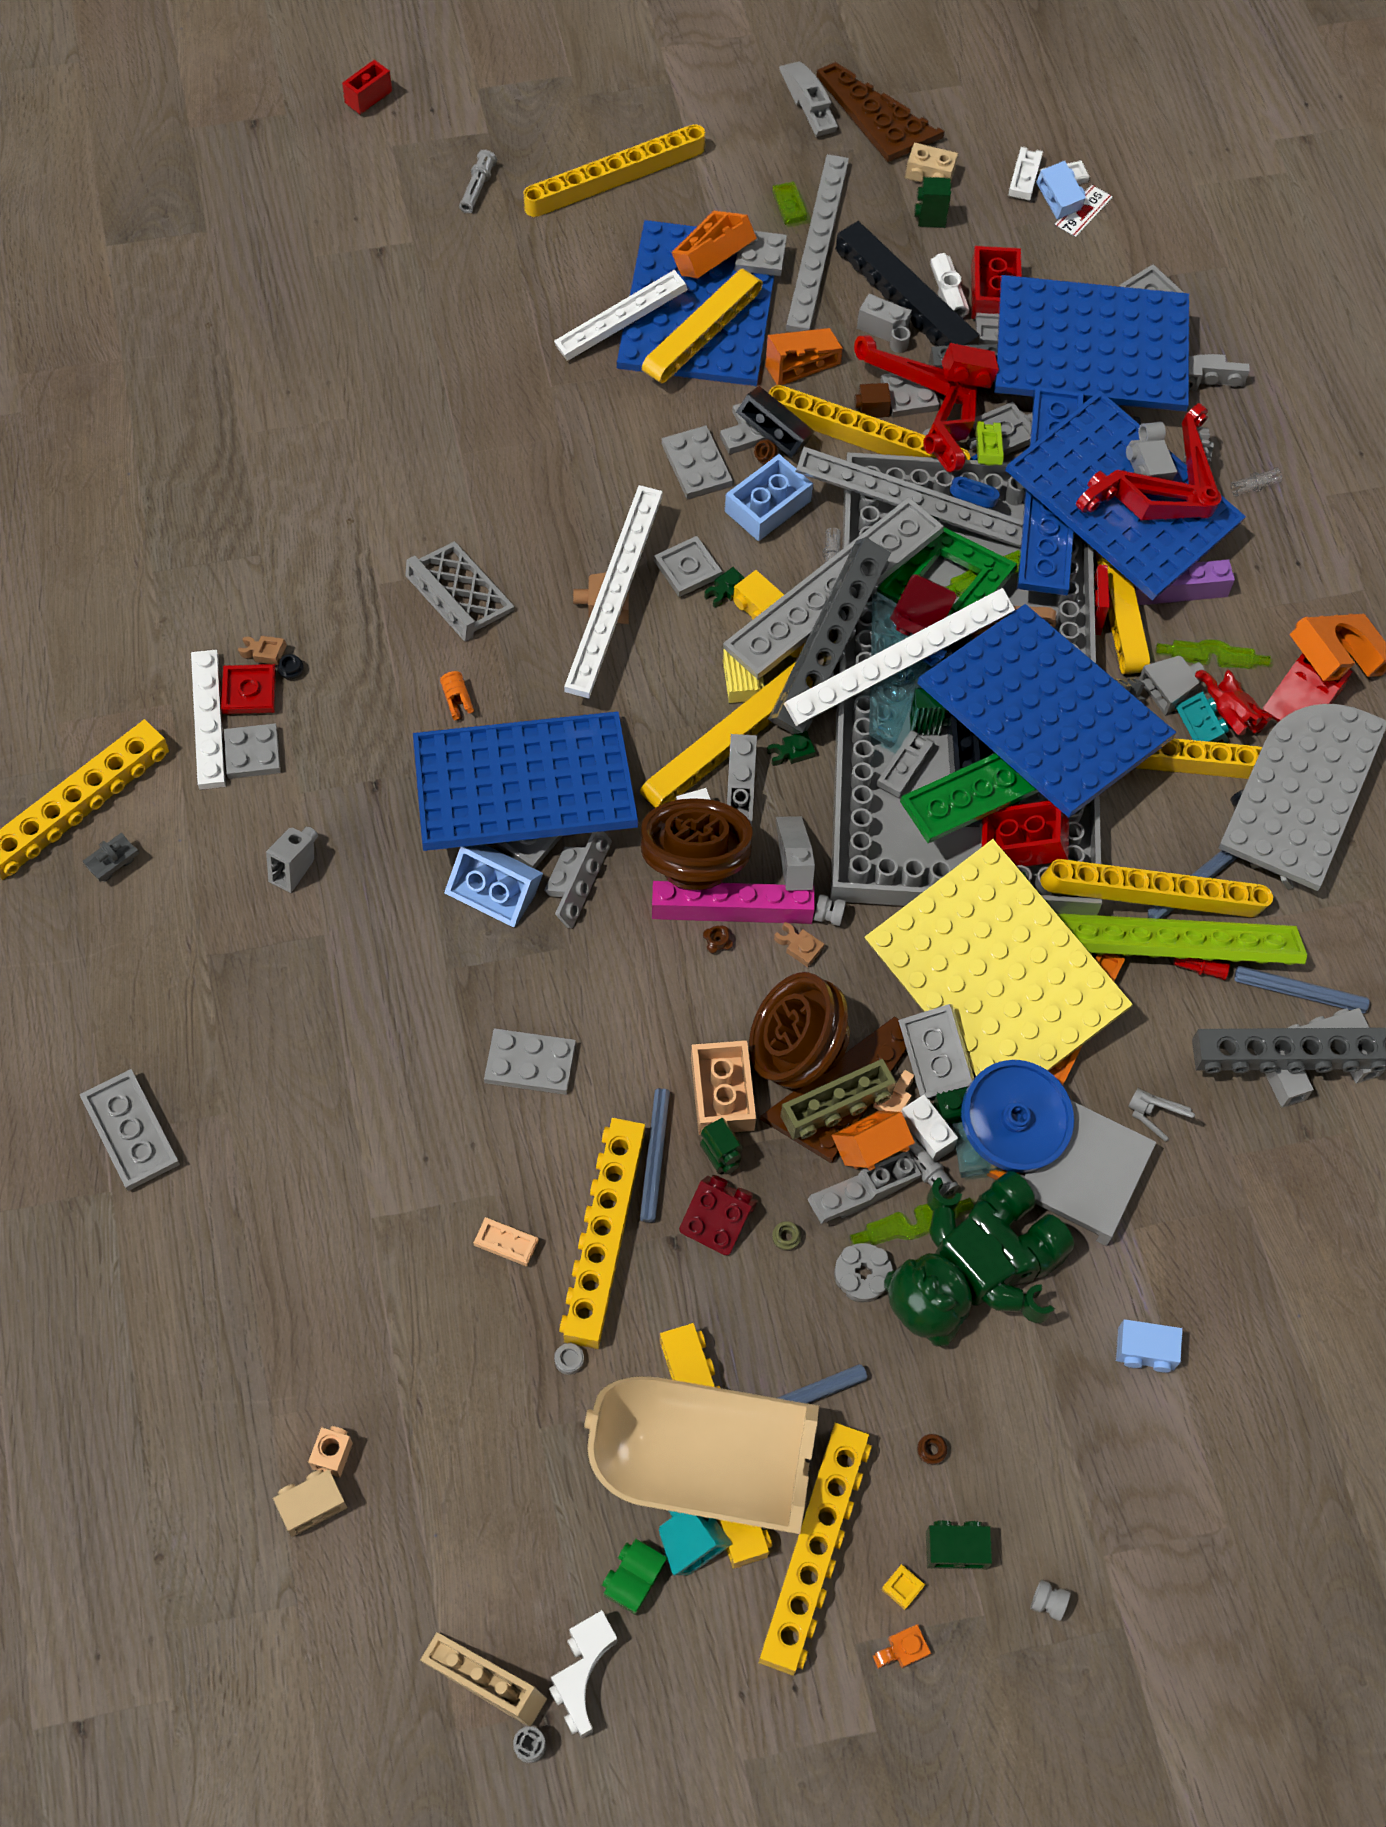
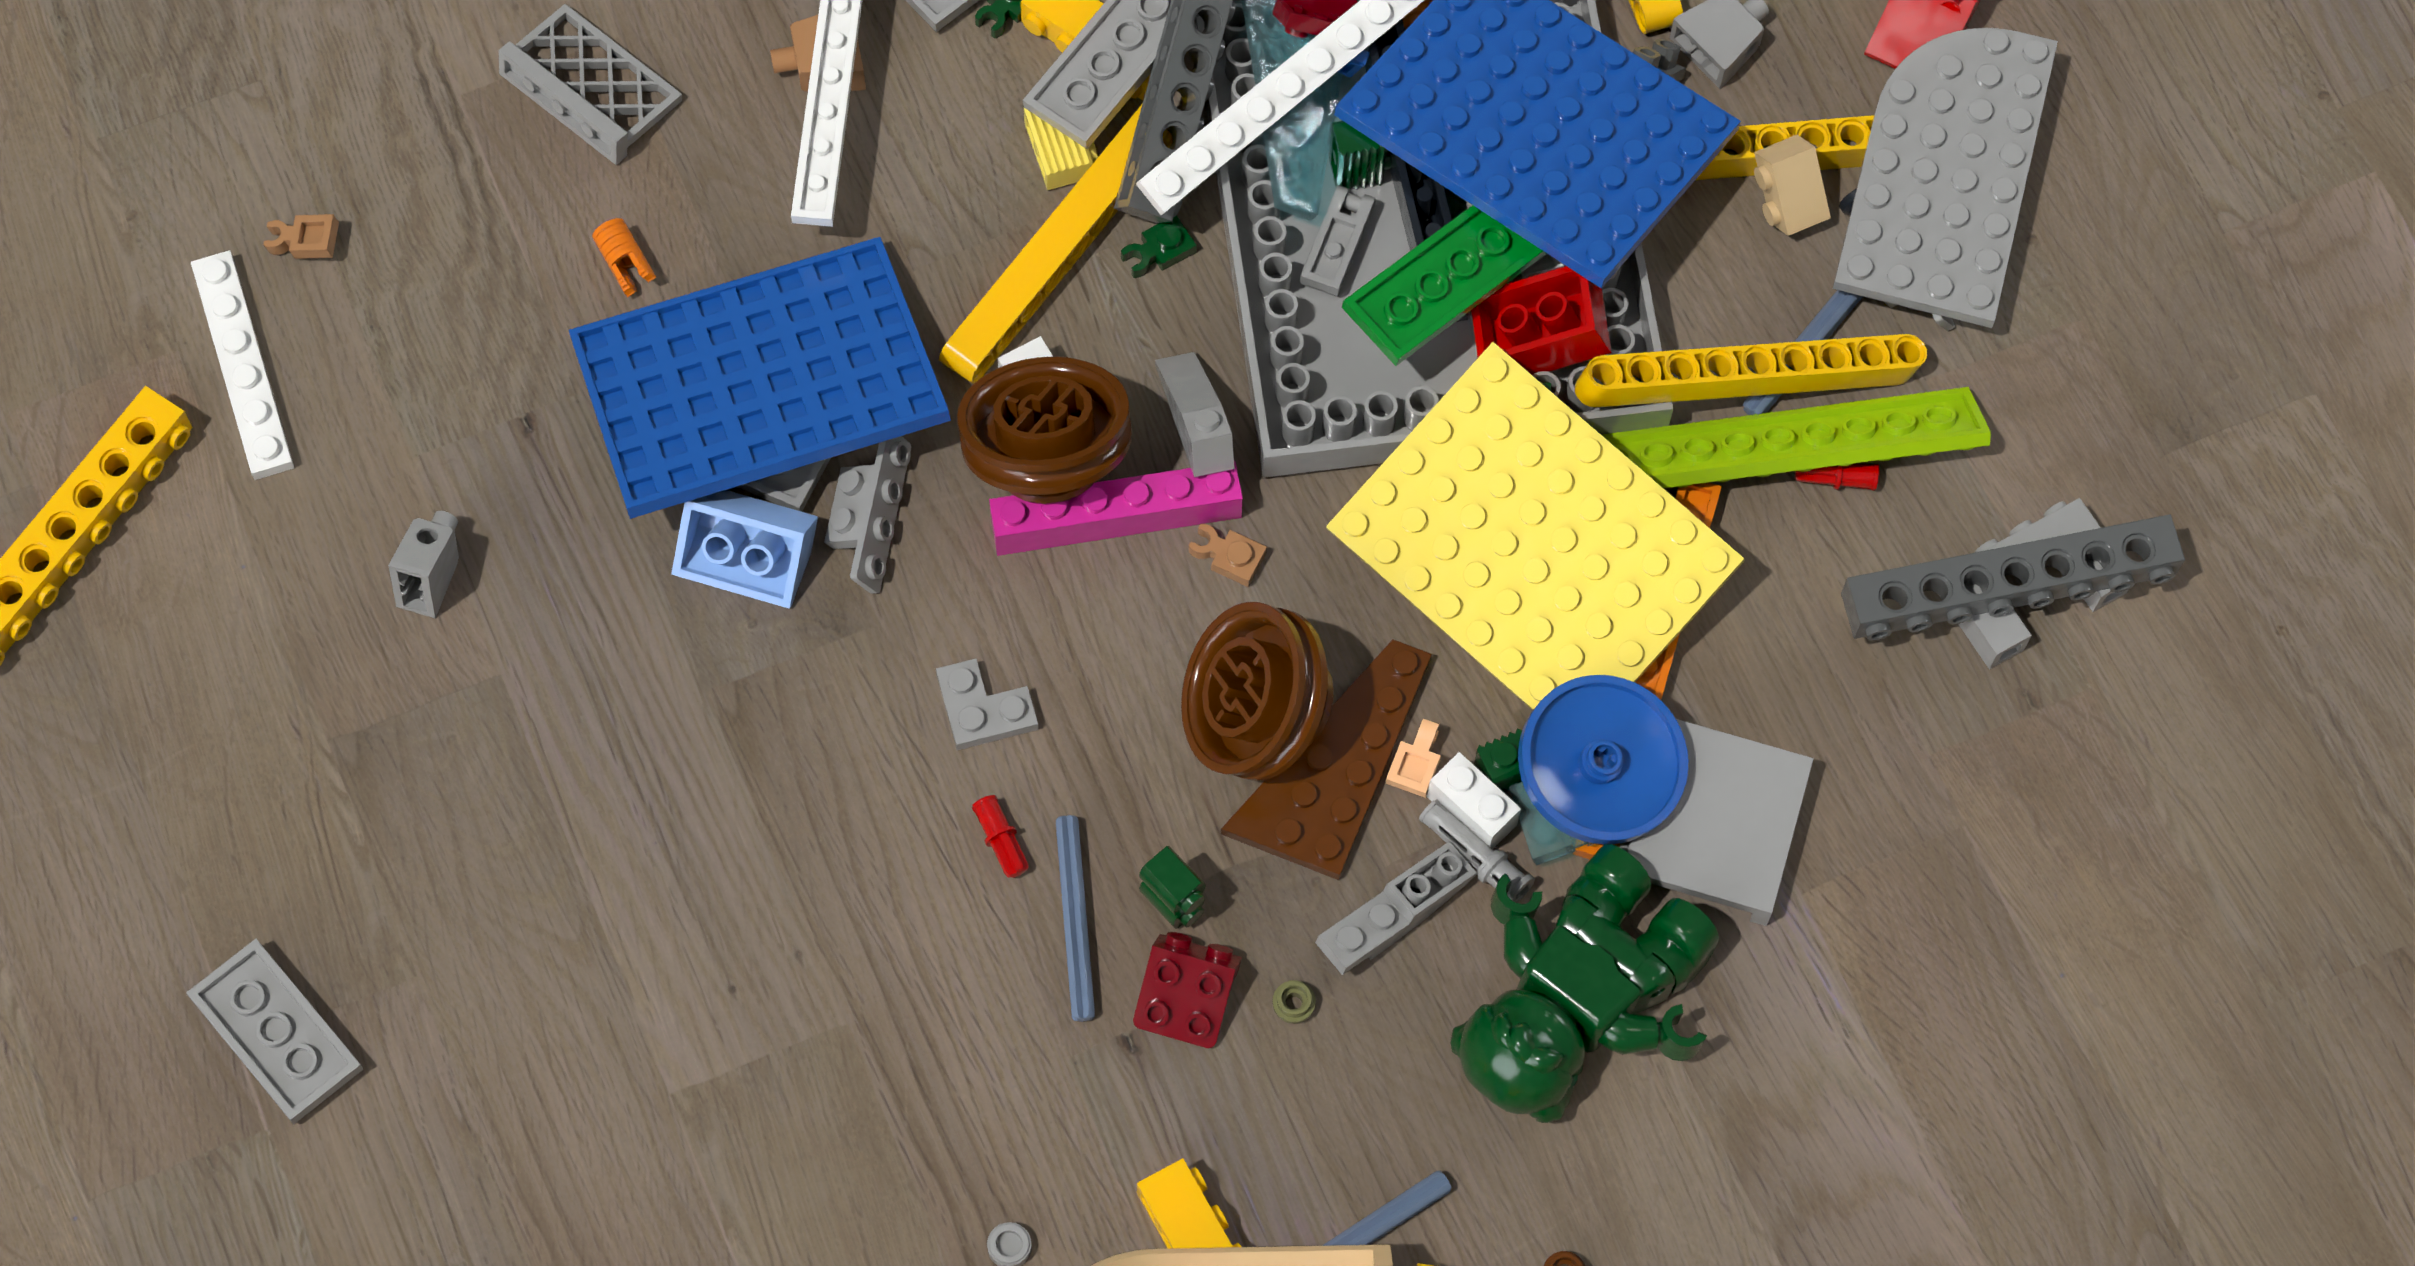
camera: 10 degrees left, 5 degrees up
(110, 857) = (144, 615): dark grey hips -> none
(248, 689) = (295, 305): red plate -> none
(252, 751) = (323, 403): light grey plate -> none
(290, 666) = (352, 257): black plate -> none
(506, 1241) = (880, 1091): light nougat plate -> none
(530, 1061) = (858, 811): light grey plate -> none
(589, 1331) = (1031, 1199): yellow brick -> none
(617, 1093) = (1000, 836): none -> red axle
(620, 1017) = (980, 717): none -> light grey plate
(717, 932) = (1103, 557): reddish brown plate -> none
(723, 1085) = (1157, 794): light nougat brick -> none
(742, 773) = (1091, 305): light grey slope -> none
(823, 910) = (1256, 489): light grey wheel -> none
(838, 1099) = (1333, 784): olive brick -> none
(850, 1282) = (1402, 1053): light grey plate -> none
(873, 1139) = (1396, 834): orange container -> none
(897, 1227) = (1455, 957): clear neon green piece -> none
(936, 1051) = (1466, 682): light grey plate -> none
(1145, 1102) = (1787, 699): light grey plant -> none
(1149, 1345) = (1852, 1062): light blue brick -> none
(1200, 719) = (1776, 87): teal bracket -> none
(1202, 780) = (1791, 185): none -> tan brick
(1234, 704) = (1821, 53): red animal -> none
(1301, 989) = (1990, 483): sand blue axle -> none

